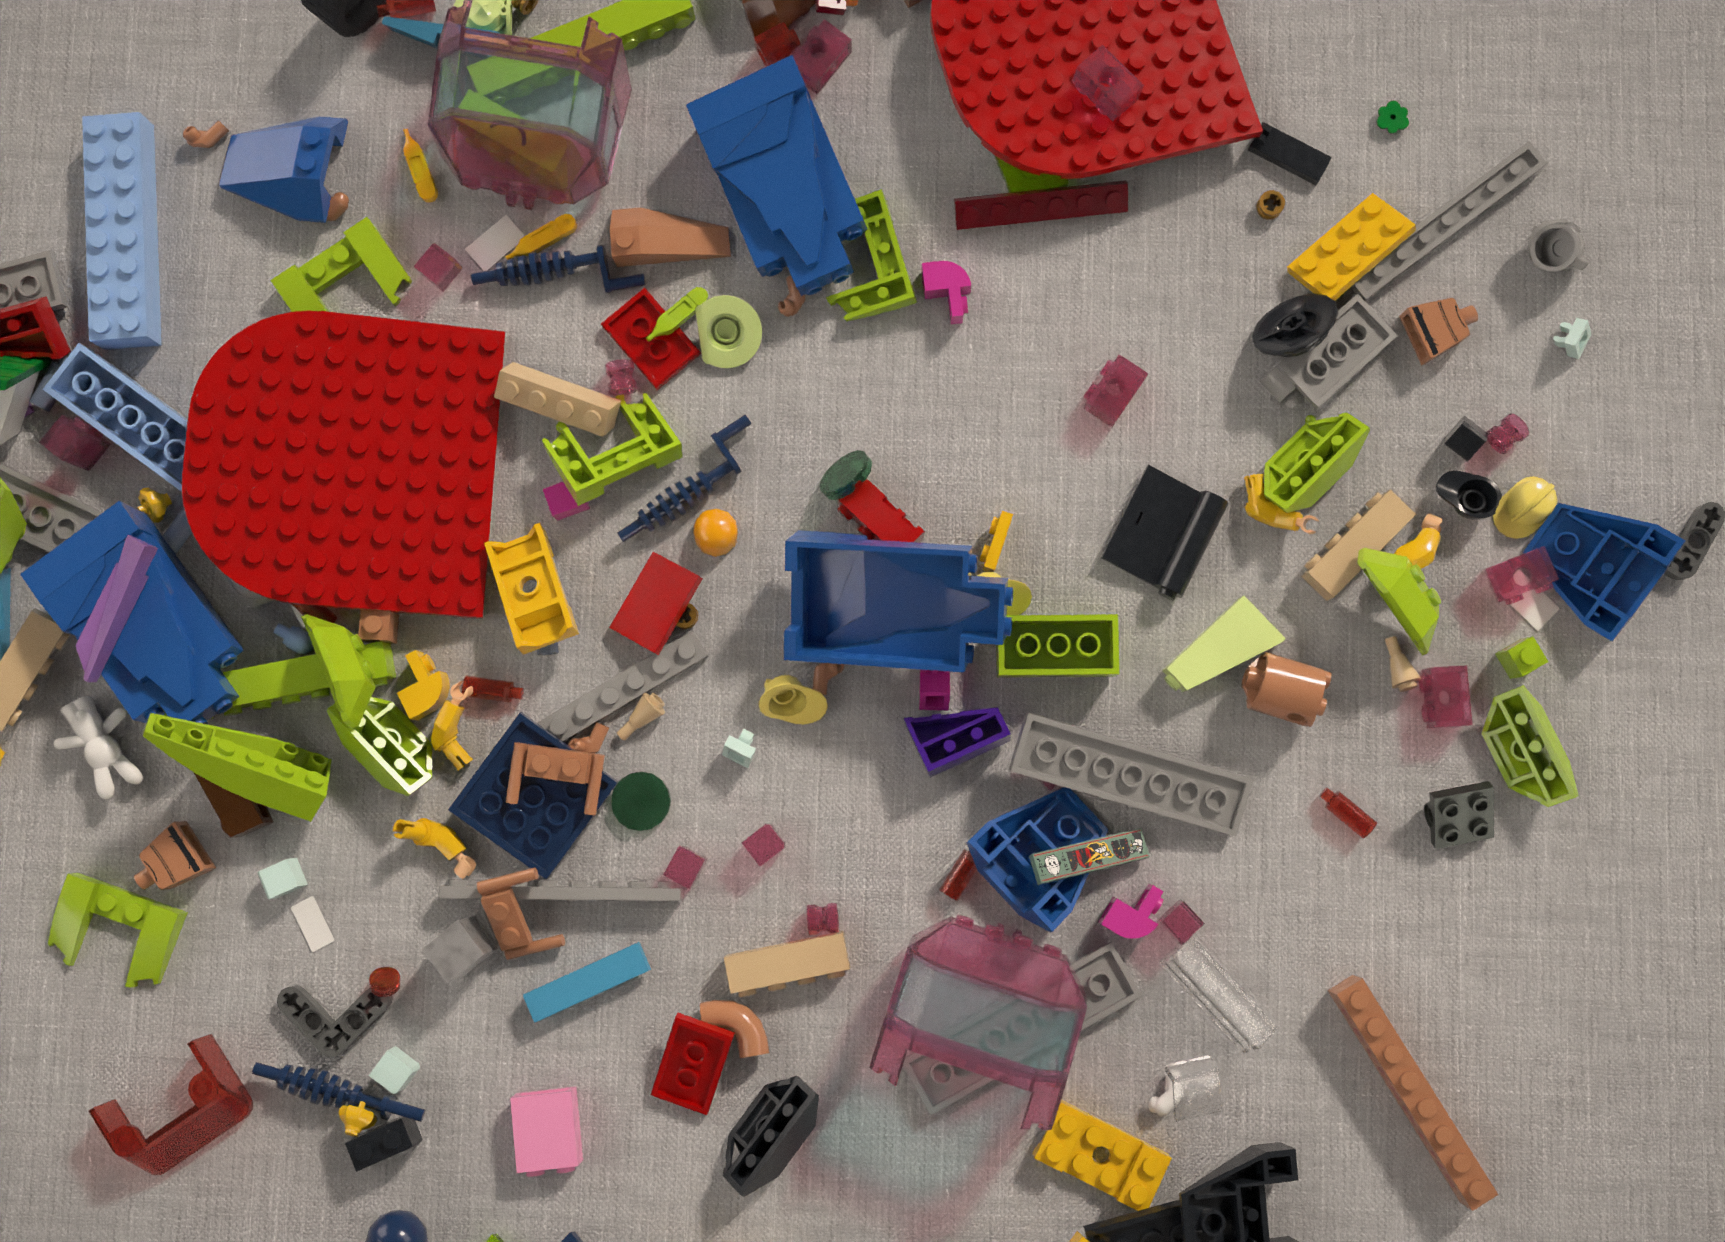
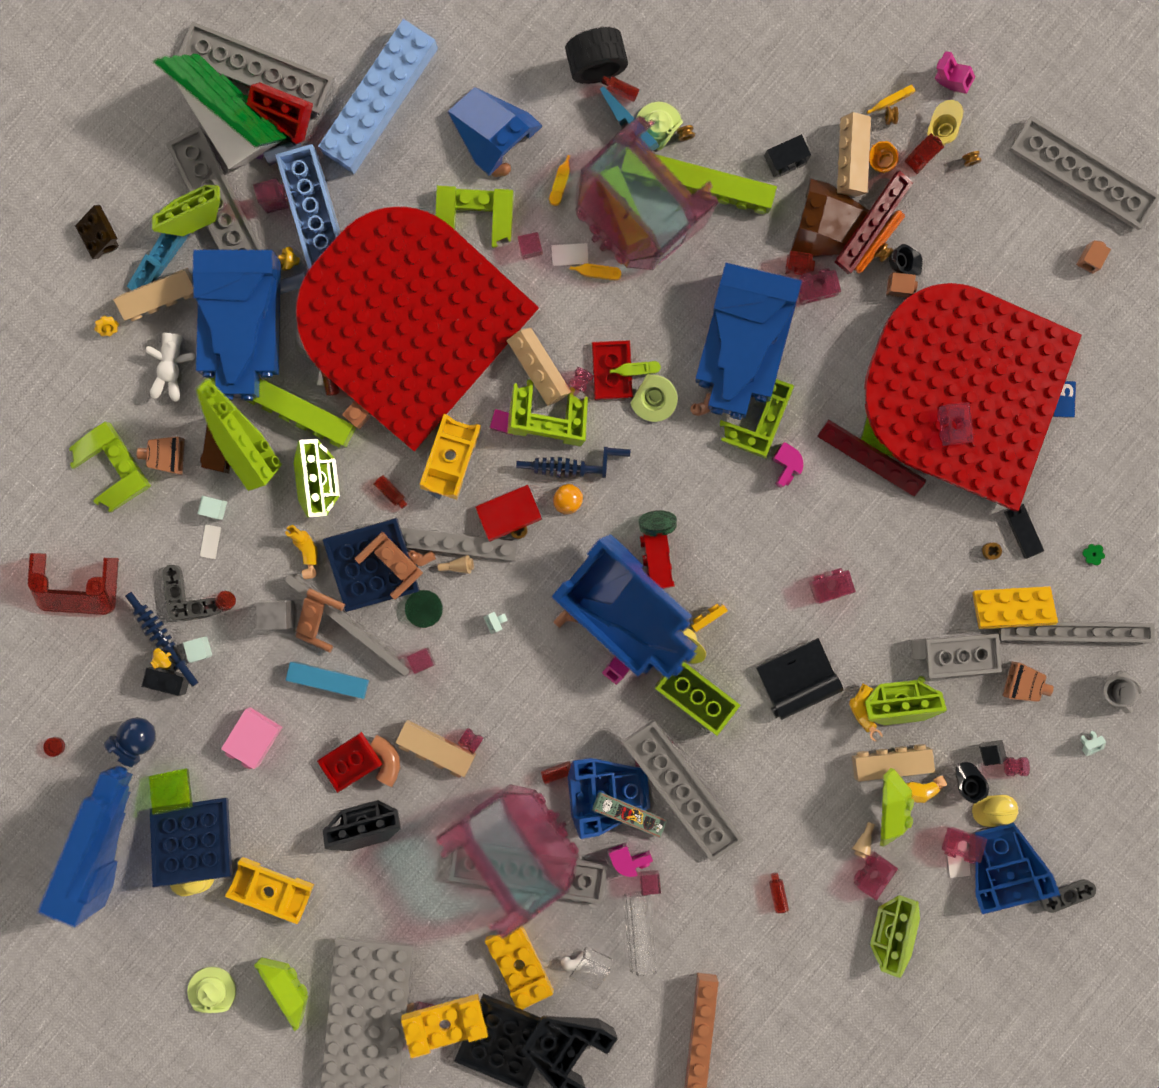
camera: 30 degrees right, 5 degrees up
(114, 606) = (229, 305): medium lavender wedge -> none
(207, 138) = (460, 79): nougat arm -> none
(294, 638) = (310, 387): light blue cylinder -> none
(343, 666) = (323, 424): lime wedge -> none
(430, 690) = (358, 468): yellow brick -> none
(445, 728) = (352, 495): yellow arm -> none
(558, 265) = (593, 292): dark blue piece -> none
(656, 237) = (656, 317): nougat wedge -> none
(764, 844) = (469, 680): clear pink piece -> none
(791, 701) = (539, 618): light yellow piece -> none
(956, 737) = (608, 702): dark purple wedge -> none
(1227, 642) = (783, 761): yellowish green slope -> none
(1286, 689) = (796, 808): nougat cylinder -> none
(1295, 325) = (952, 626): black piece -> none
(1461, 814) = (834, 939): pearl dark grey plate -> none
(1521, 657) = (930, 885): lime brick -> none

